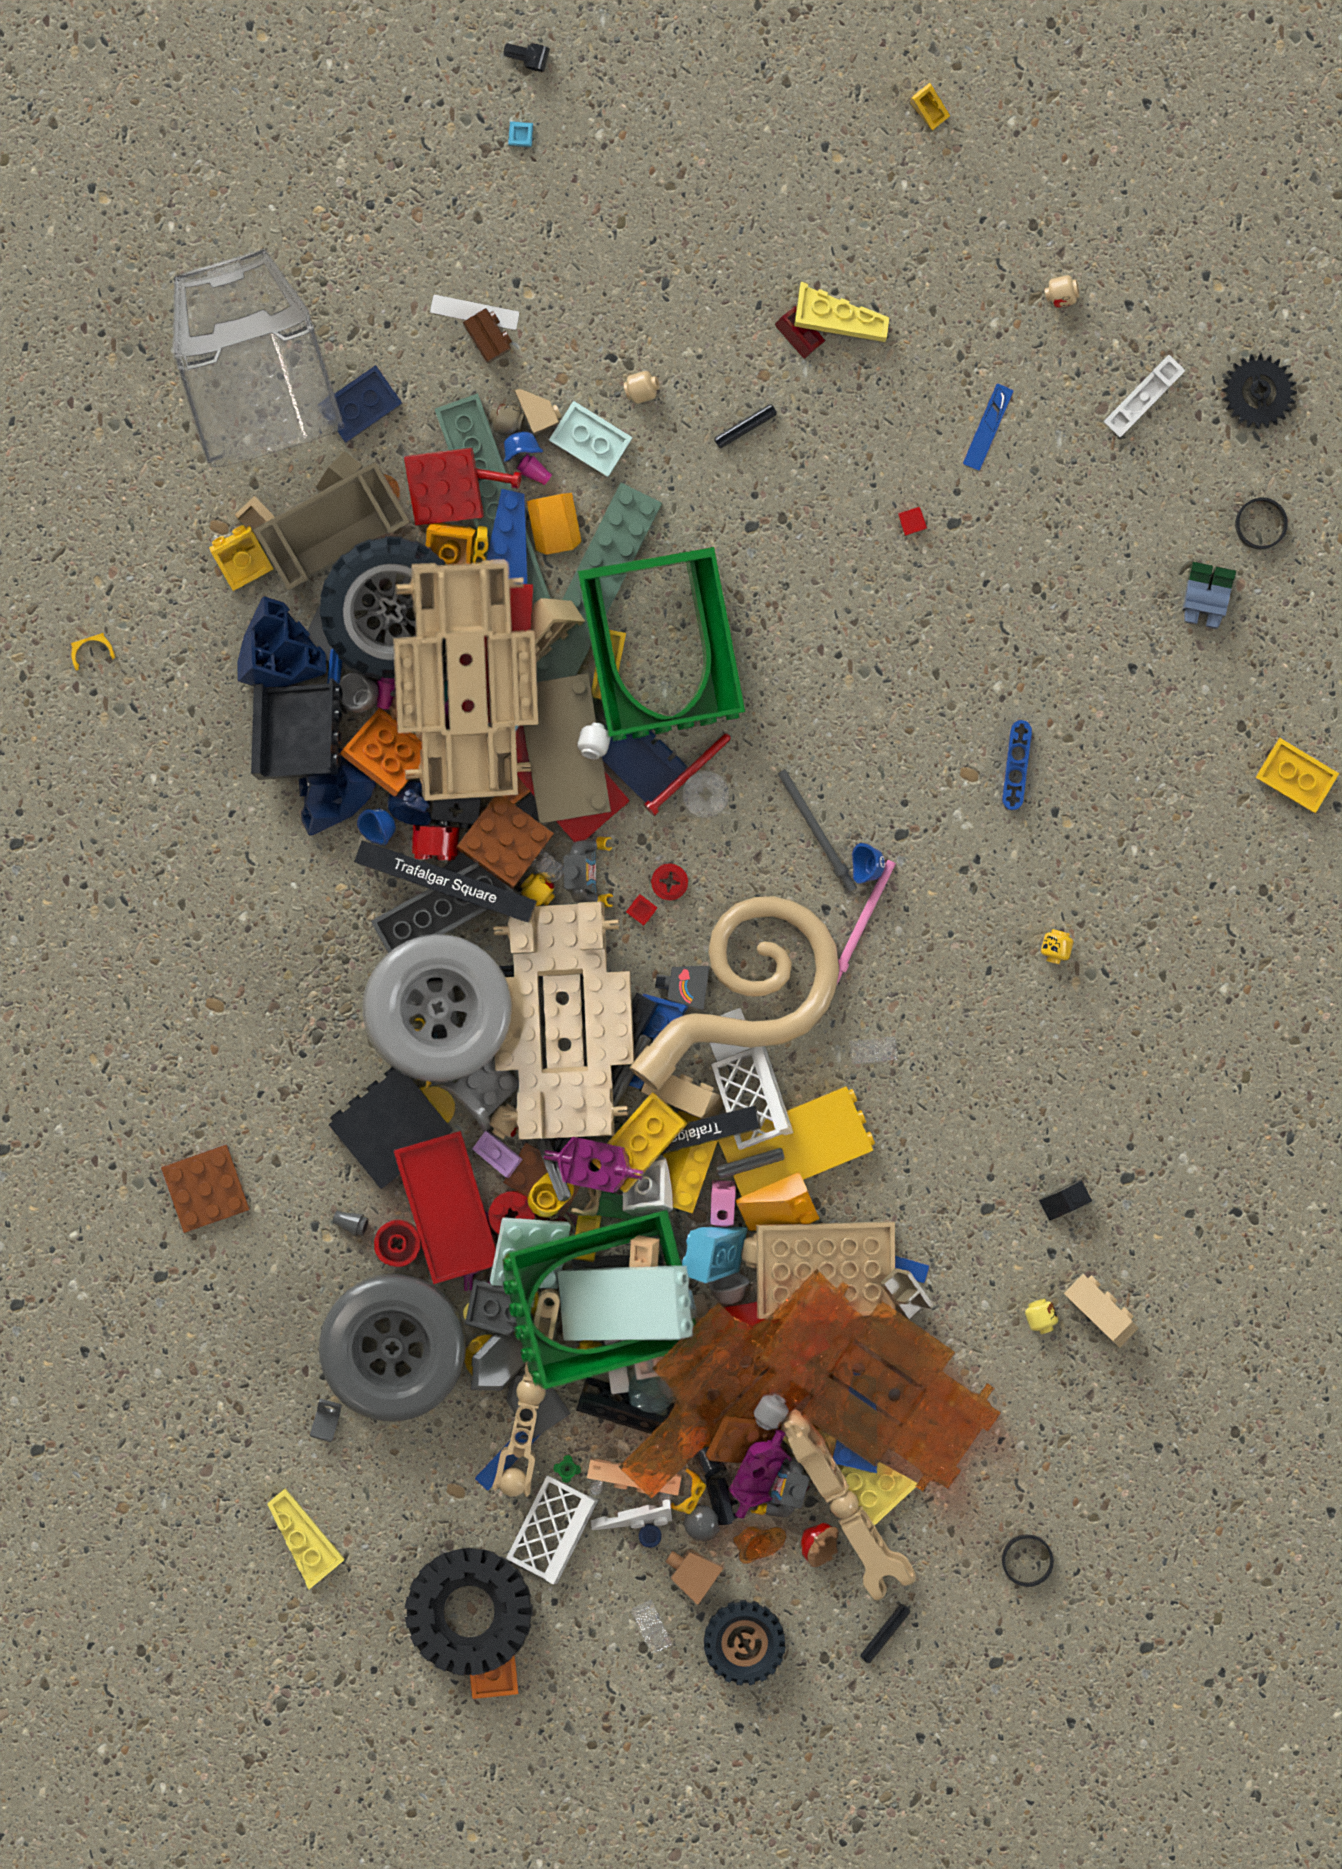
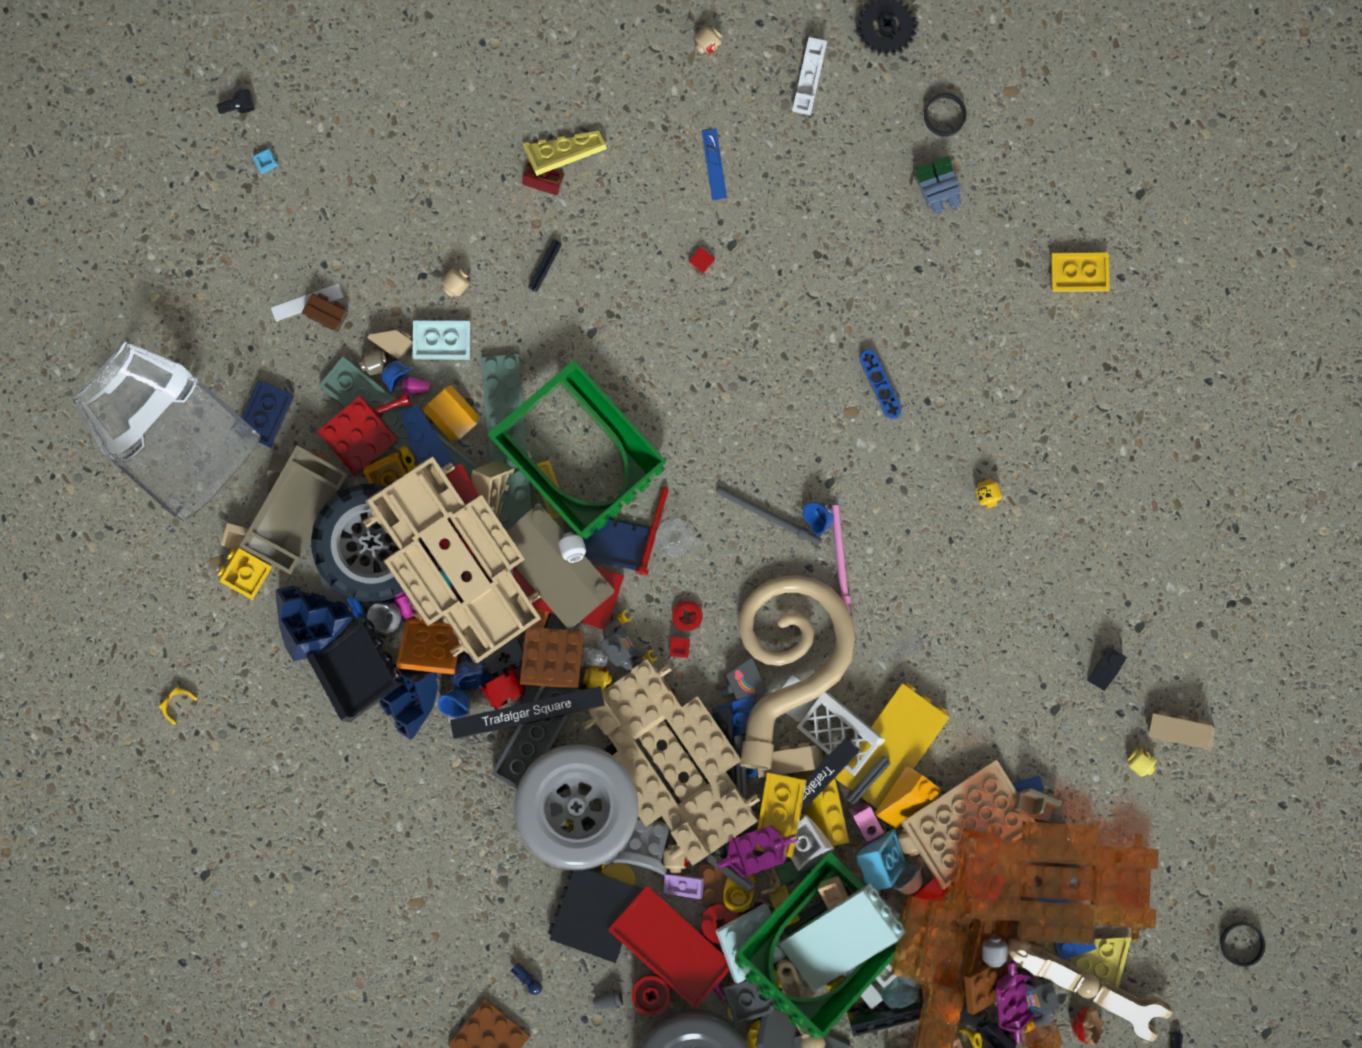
camera: 25 degrees left, 5 degrees down
(283, 1162) = (533, 986): none -> dark blue pin

